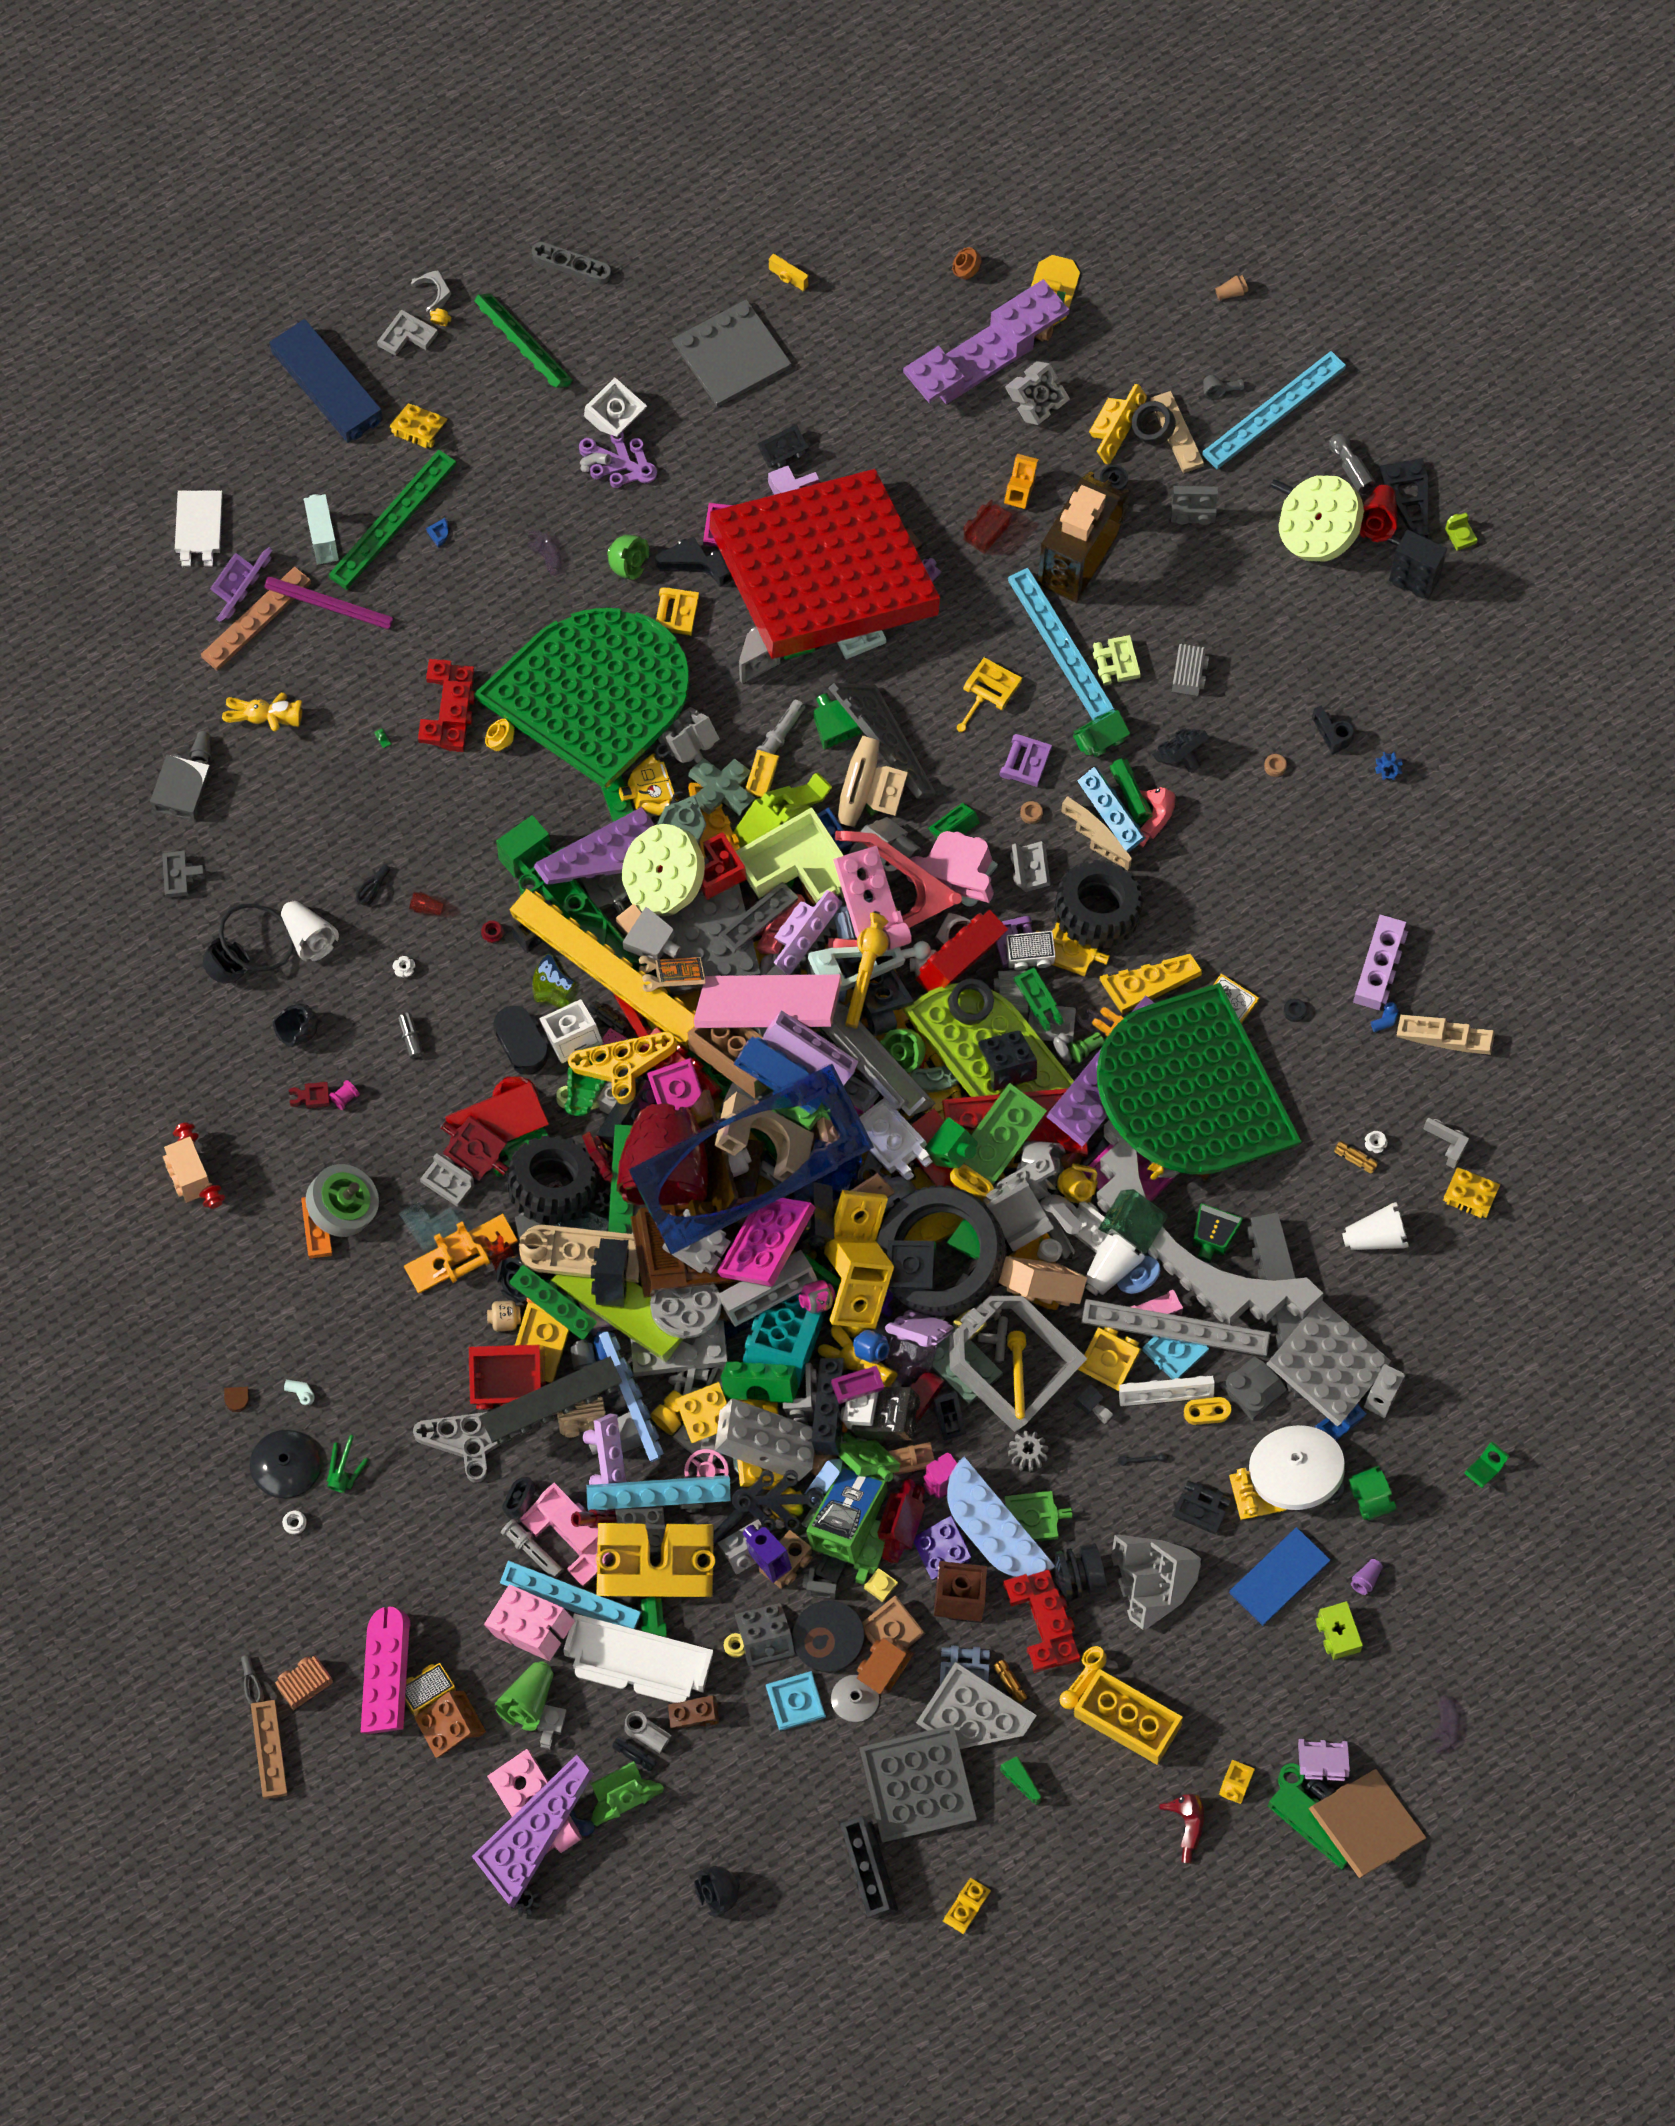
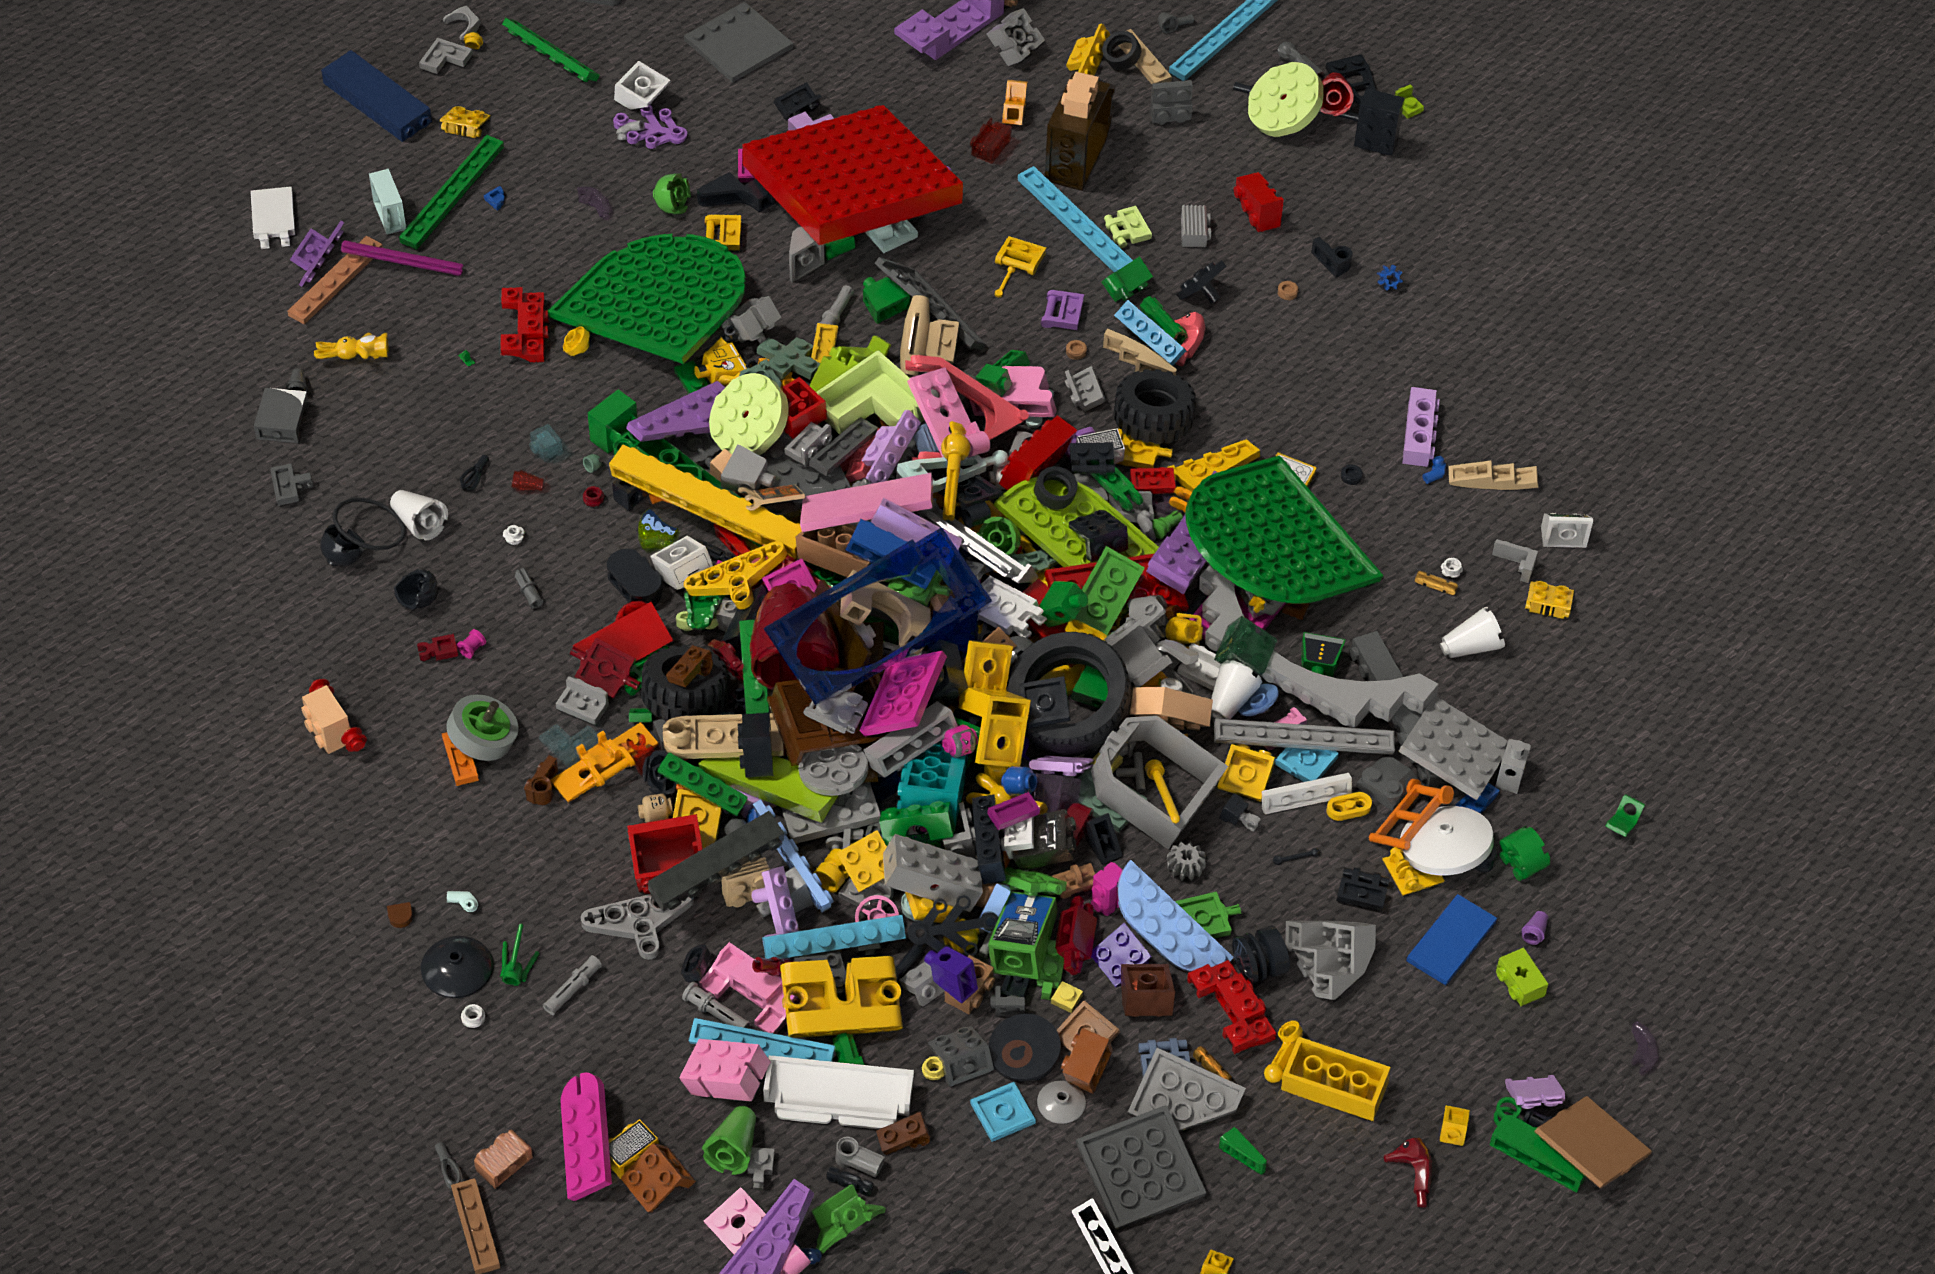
camera: 10 degrees left, 15 degrees down
(399, 1258) = (541, 781): none -> reddish brown plate
(402, 1496) = (578, 978): none -> light grey pin
(450, 859) = (545, 443): none -> clear light blue brick
(496, 889) = (591, 463): none -> sand green hinge
(502, 1204) = (640, 715): none -> green tile
(560, 1168) = (693, 662): none -> reddish brown plate
(722, 909) = (809, 443): none -> light grey bracket
(931, 853) = (995, 379): none -> green brick
(1019, 961) = (1092, 458): none -> black plate
(1080, 993) = (1153, 479): none -> red bracket
(1265, 647) = (1259, 201): none -> red wedge
(1278, 1400) = (1413, 789): none -> orange piece
(1506, 1112) = (1566, 530): none -> white slope

